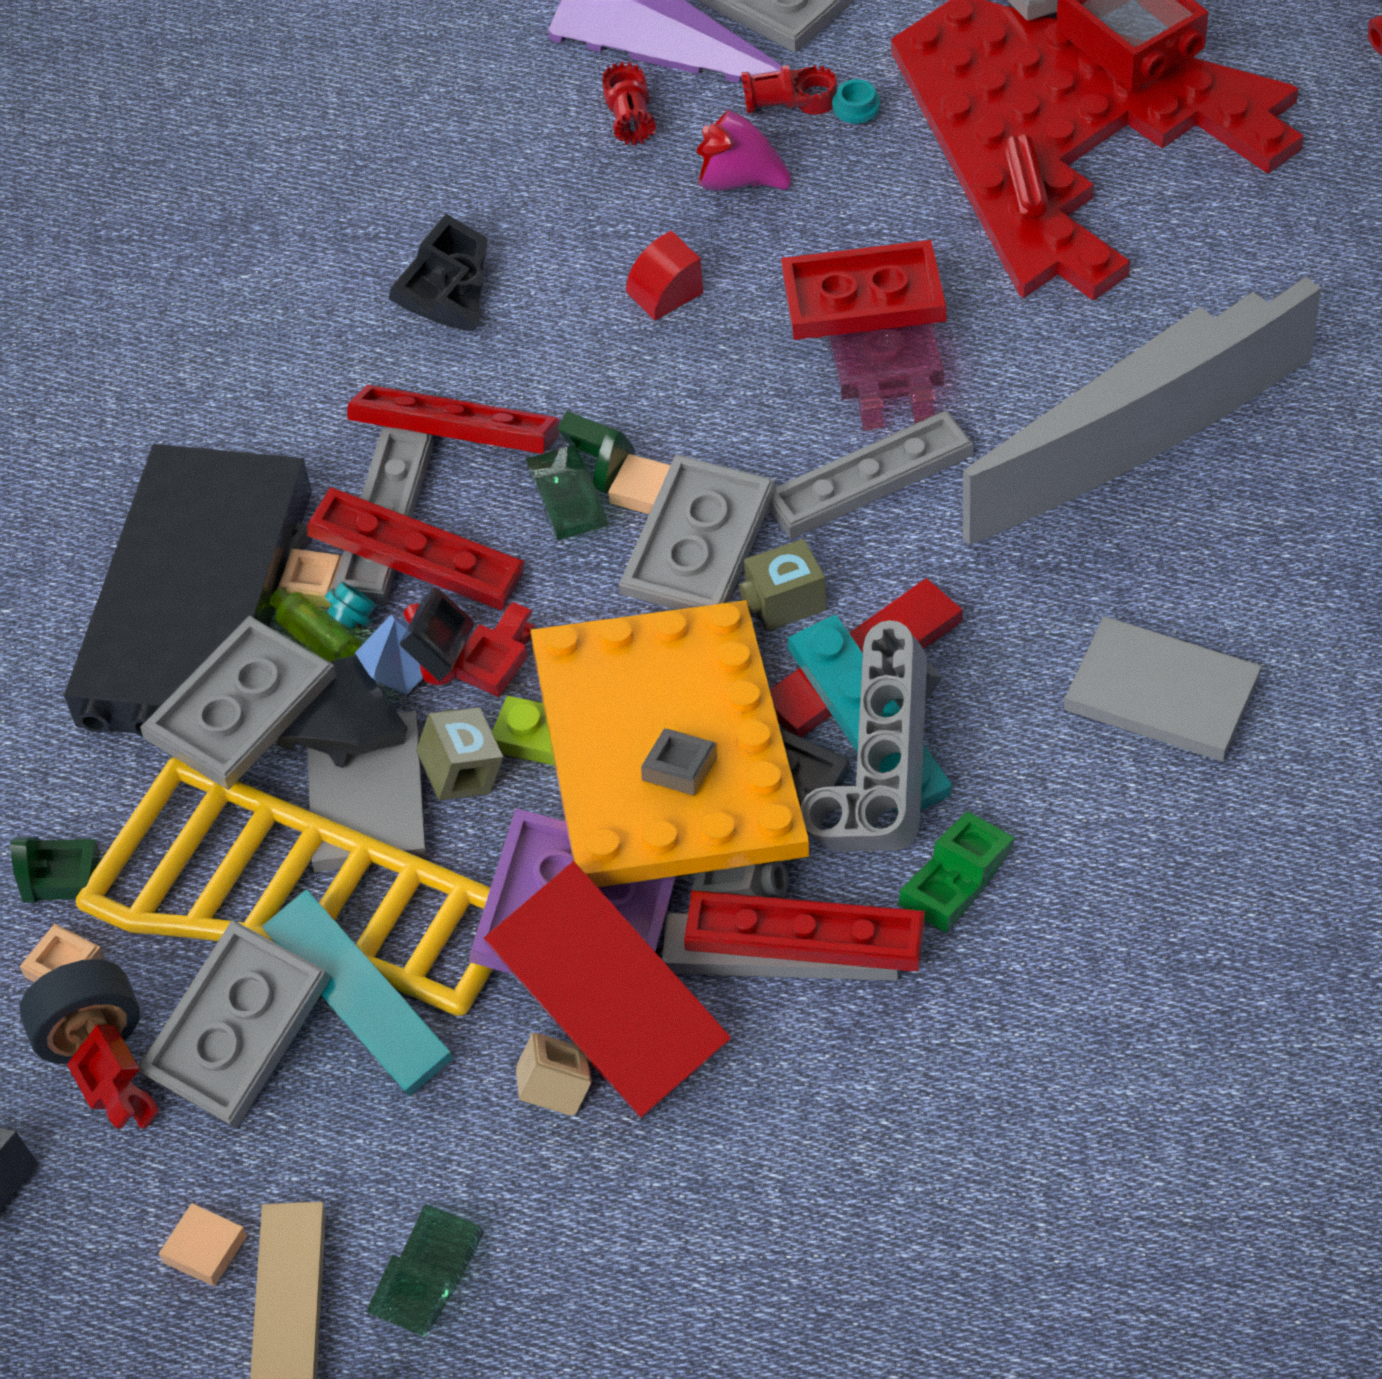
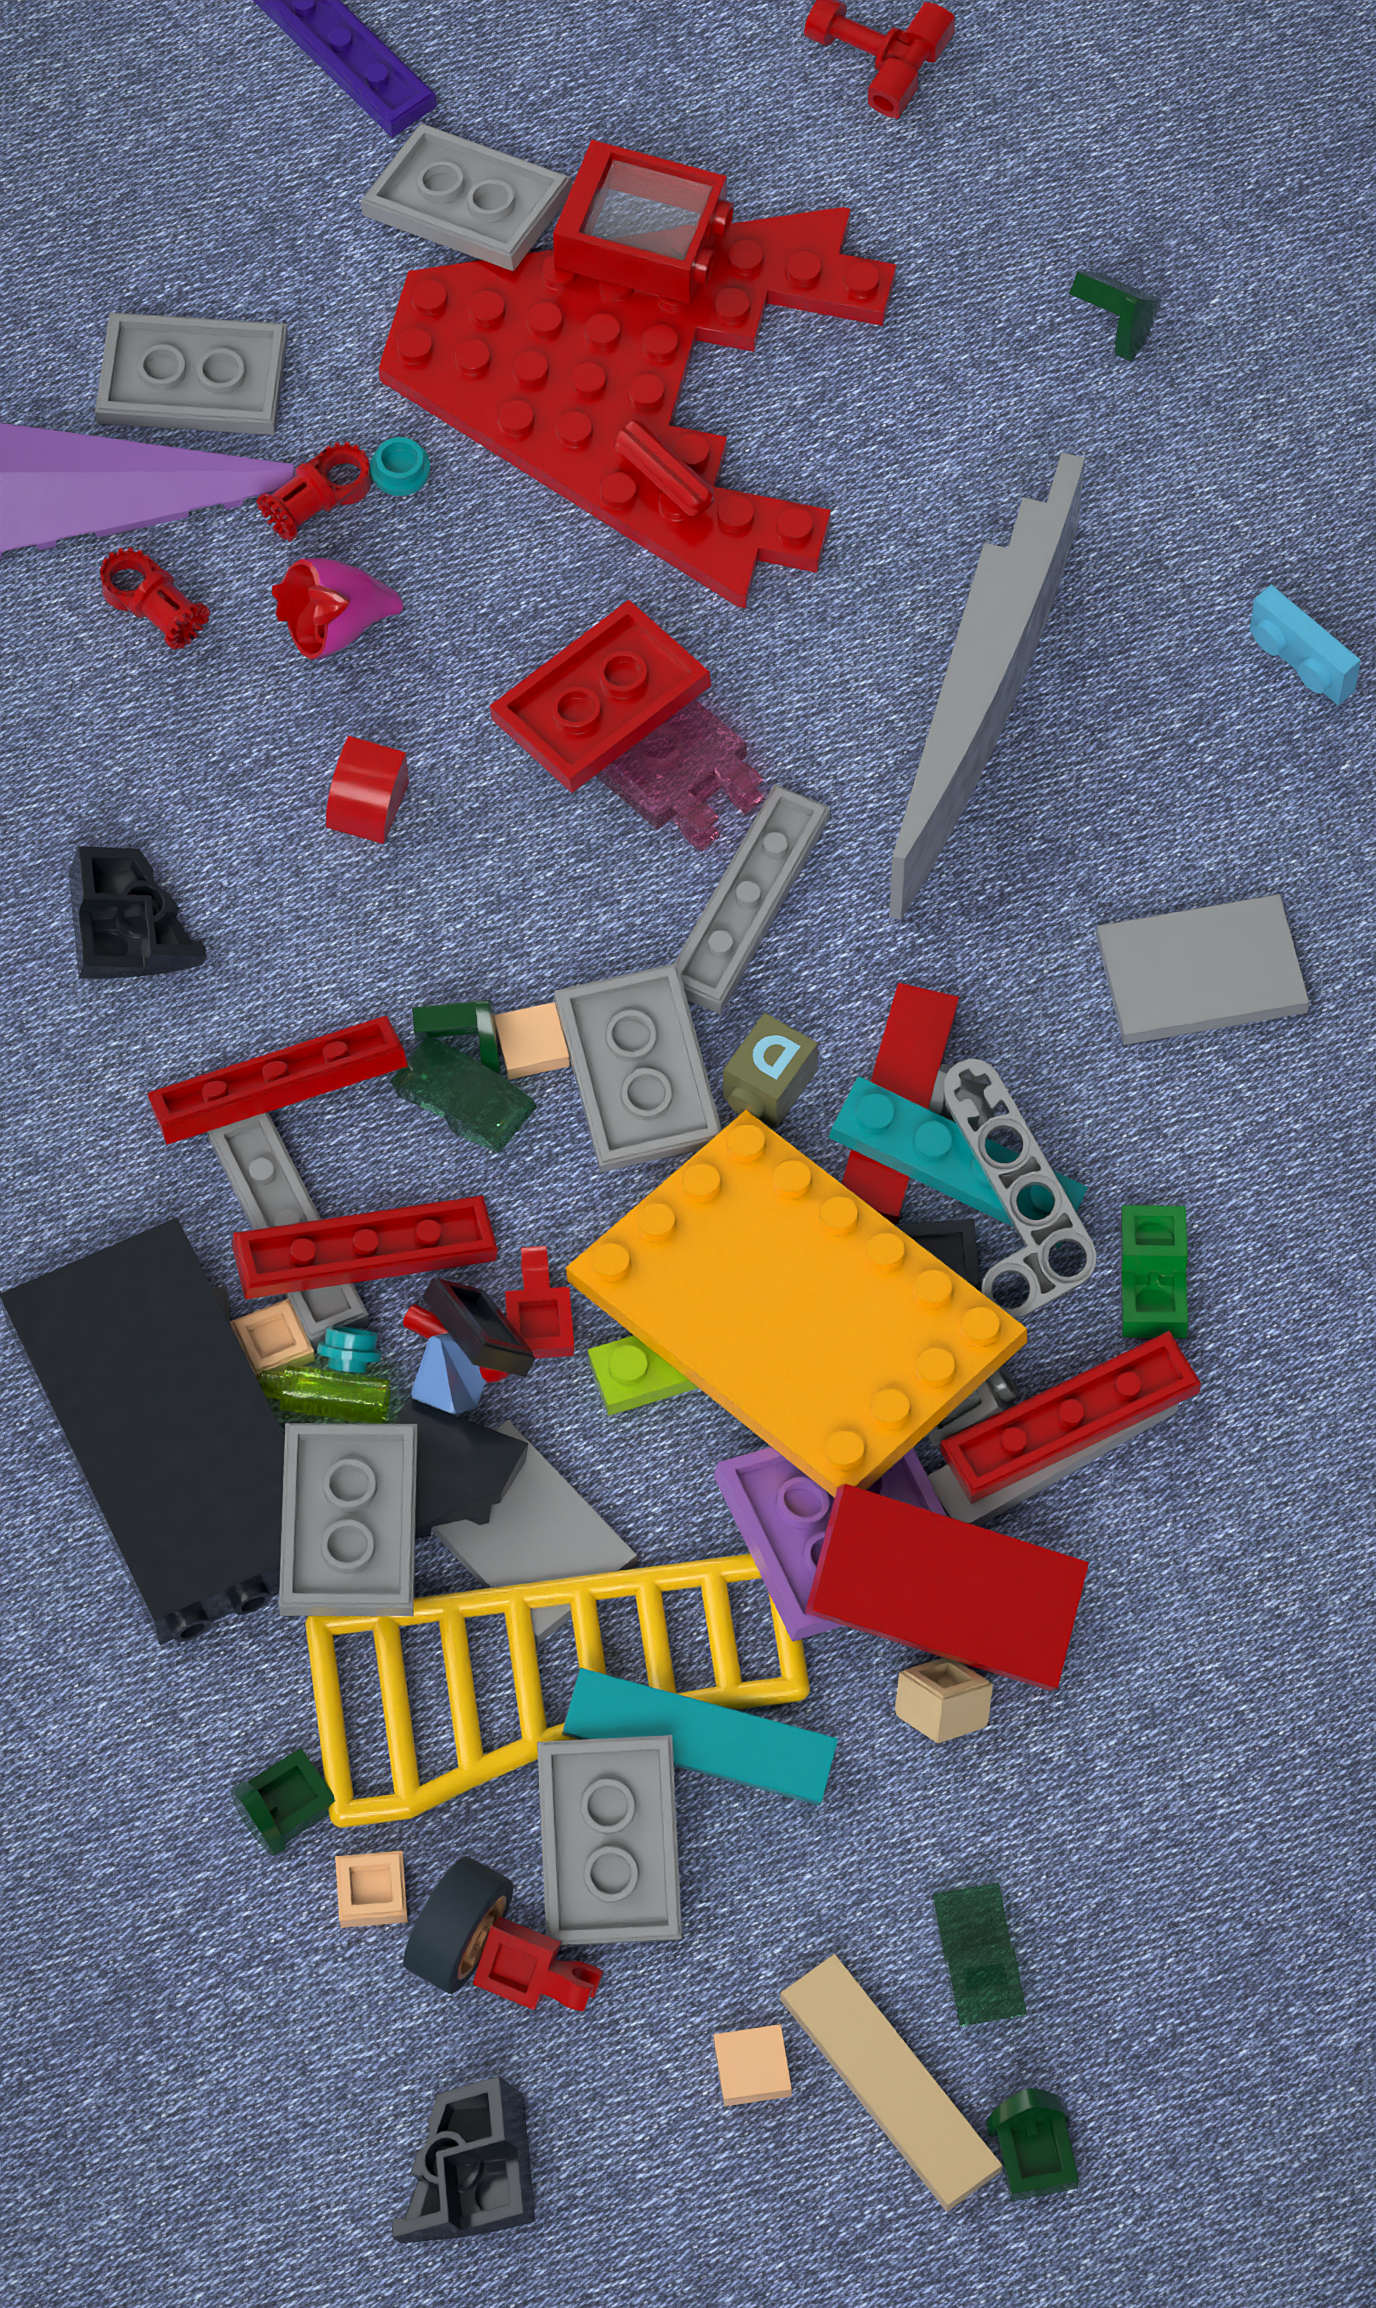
camera: 40 degrees left, 10 degrees up
(459, 753) = (597, 1437): olive brick -> none
(679, 761) = (843, 1321): dark grey tile -> none

